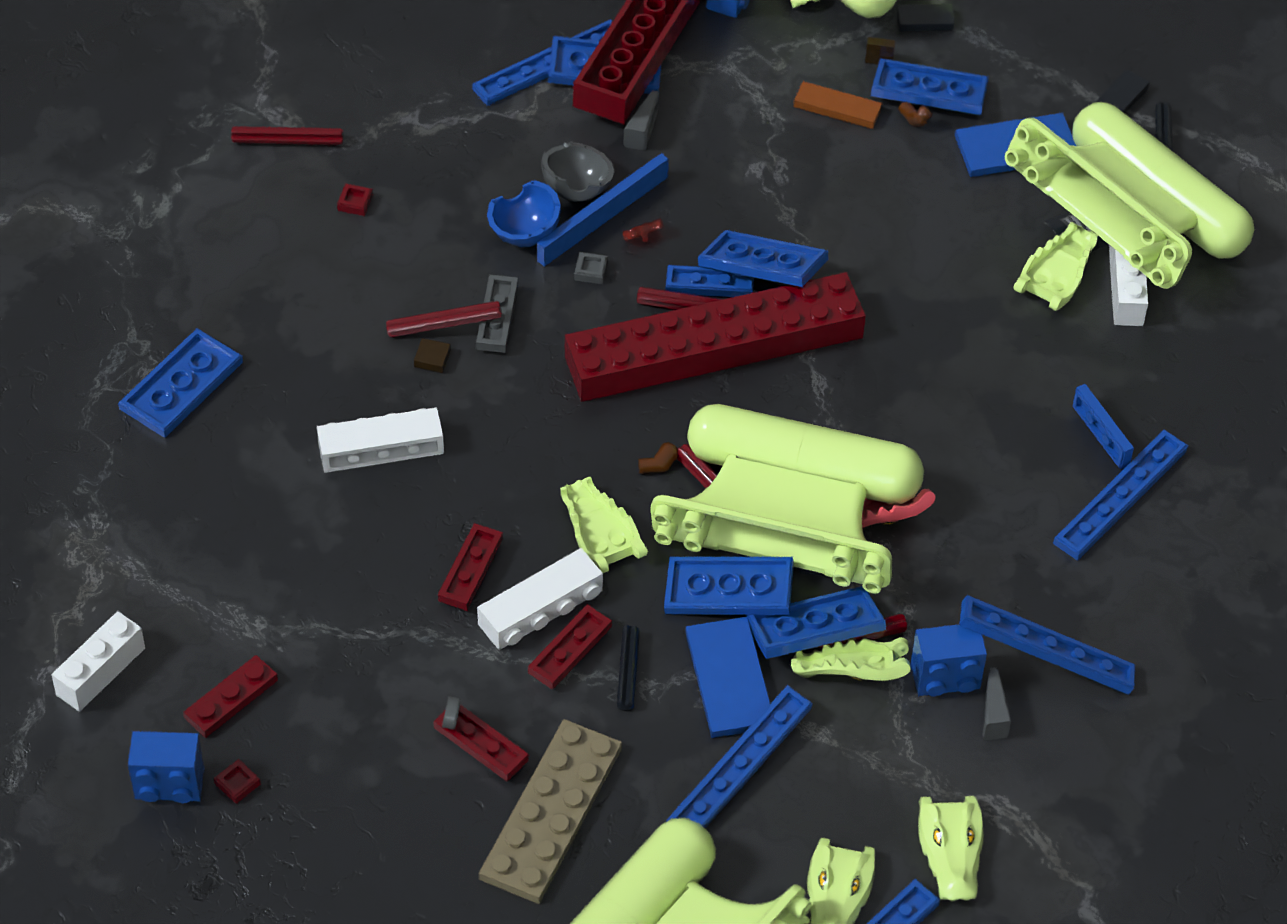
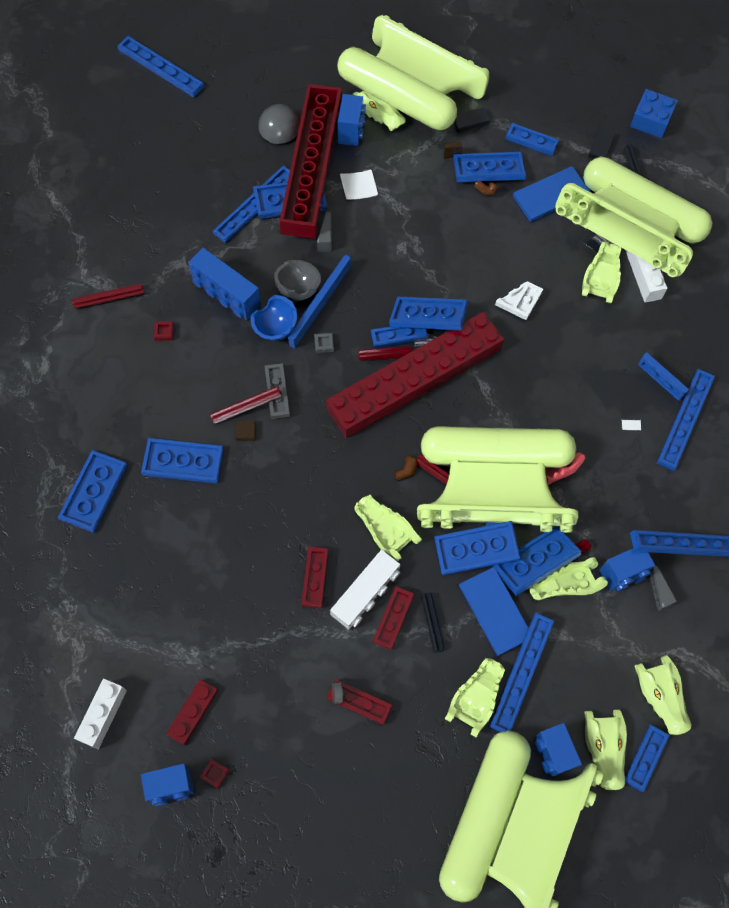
camera: 15 degrees left, 15 degrees up
(326, 373) = (182, 460): none -> blue tile
(380, 439) = (231, 501): white brick -> none
(464, 152) = (224, 284): none -> blue brick
(550, 811) = (416, 739): dark tan plate -> none
(642, 230) = (348, 308): clear red piece -> none
(657, 777) = (476, 698): none -> yellowish green animal
(718, 70) = (359, 185): none -> white sticker
(753, 863) = (556, 750): none -> blue brick
(837, 105) = (437, 192): dark orange tile -> none
(916, 276) = (521, 300): none -> white wing
(1013, 64) = (532, 139): none -> blue tile
(1031, 483) = (631, 424): none -> white sticker
(1219, 66) = (653, 113): none -> blue brick

